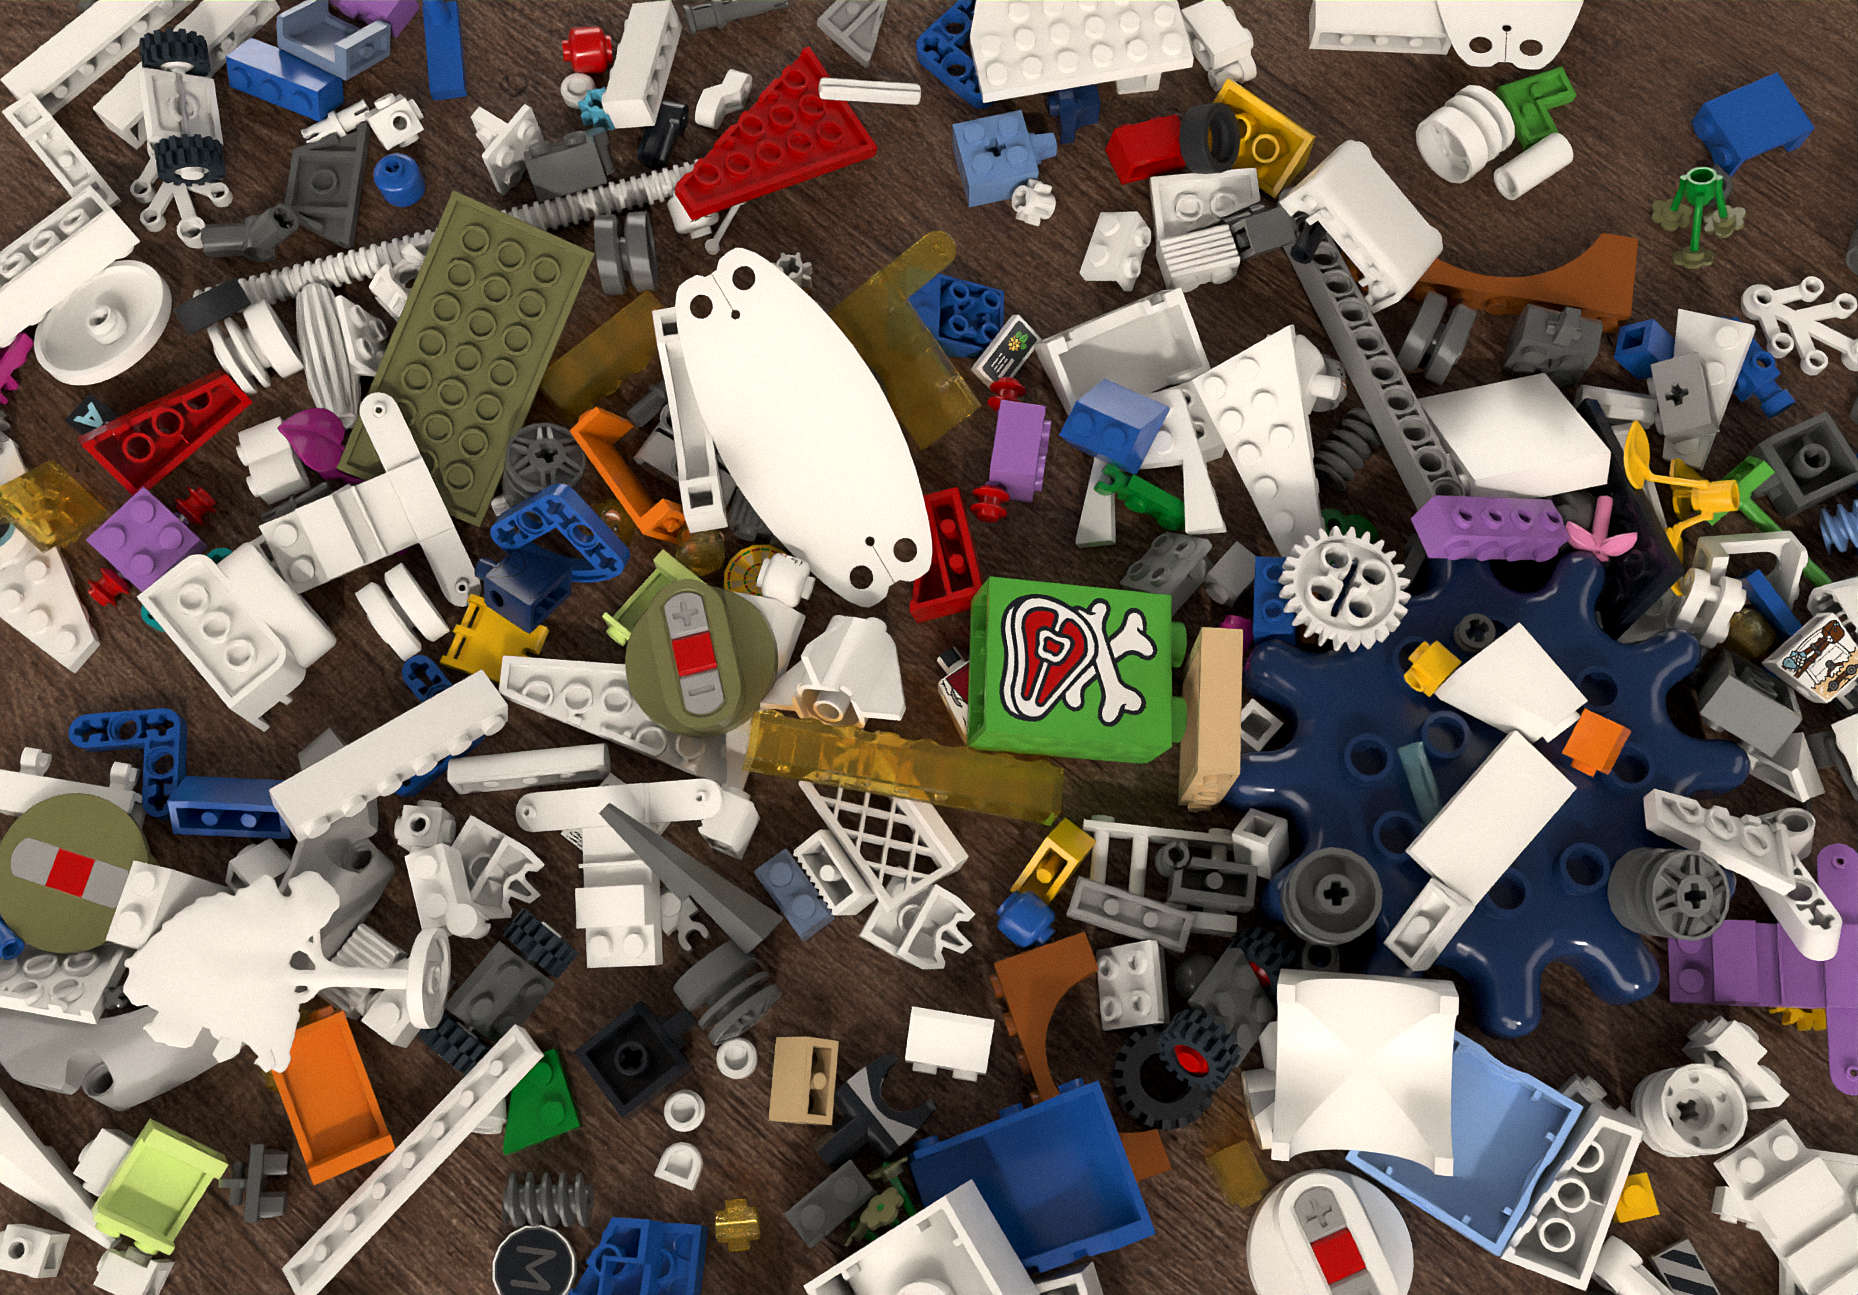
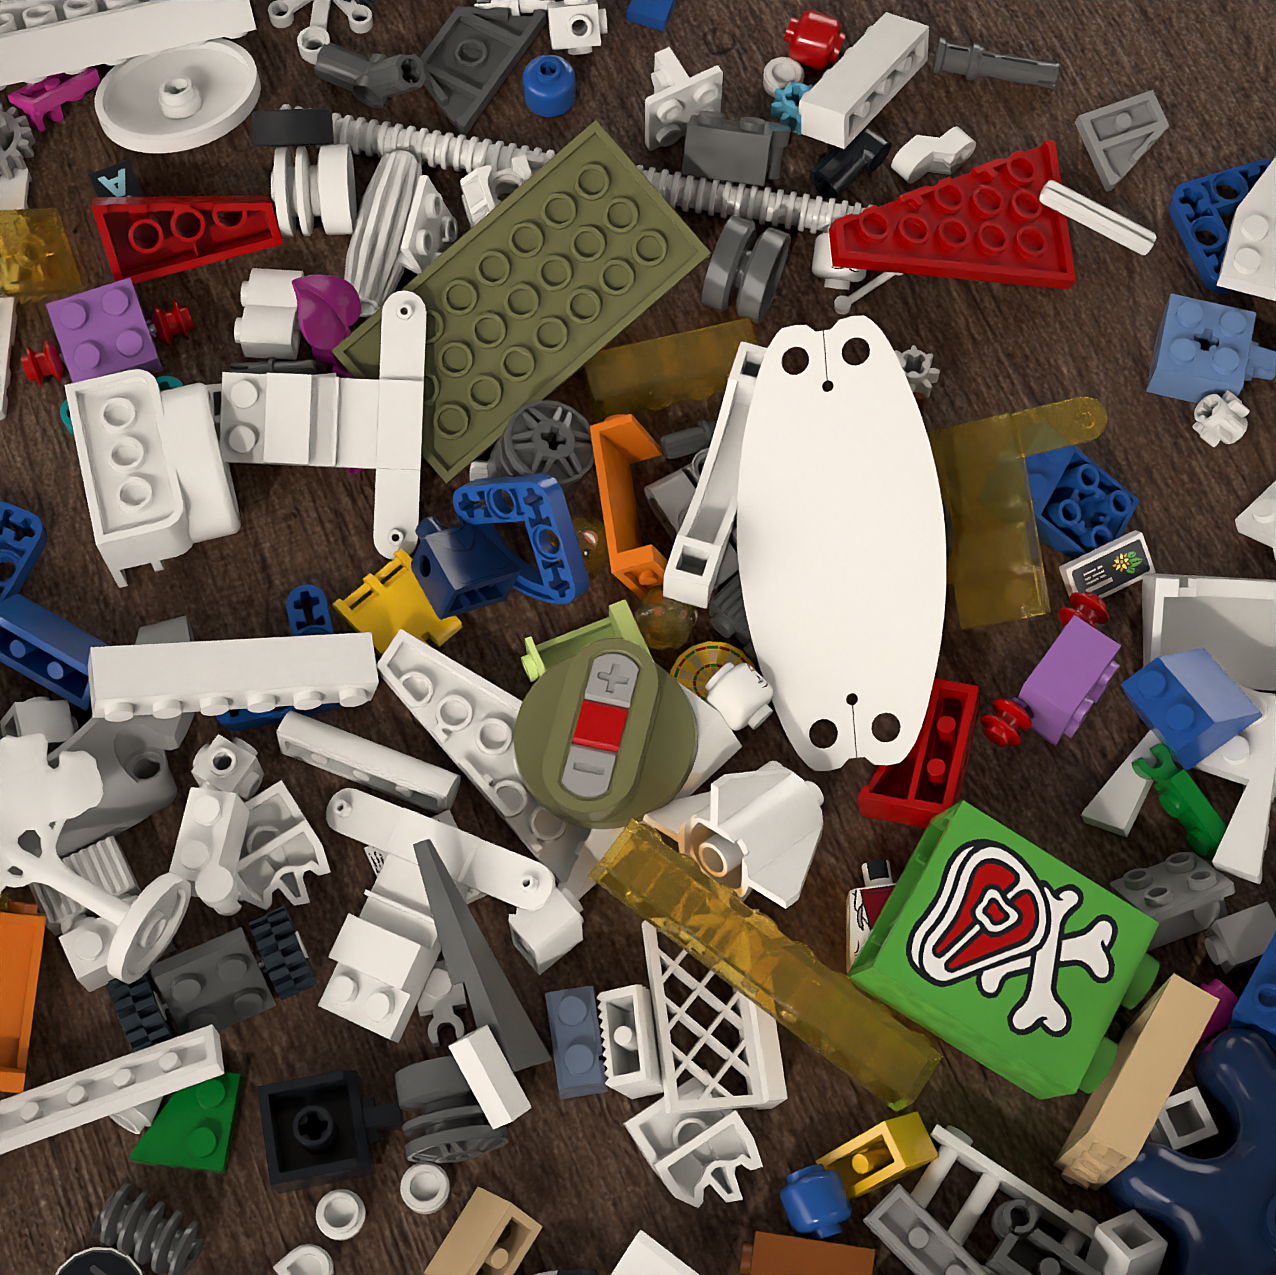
camera: 25 degrees right, 5 degrees down
(397, 615) = (315, 533): white wheel -> none
(745, 954) = (490, 1077): none -> white piece

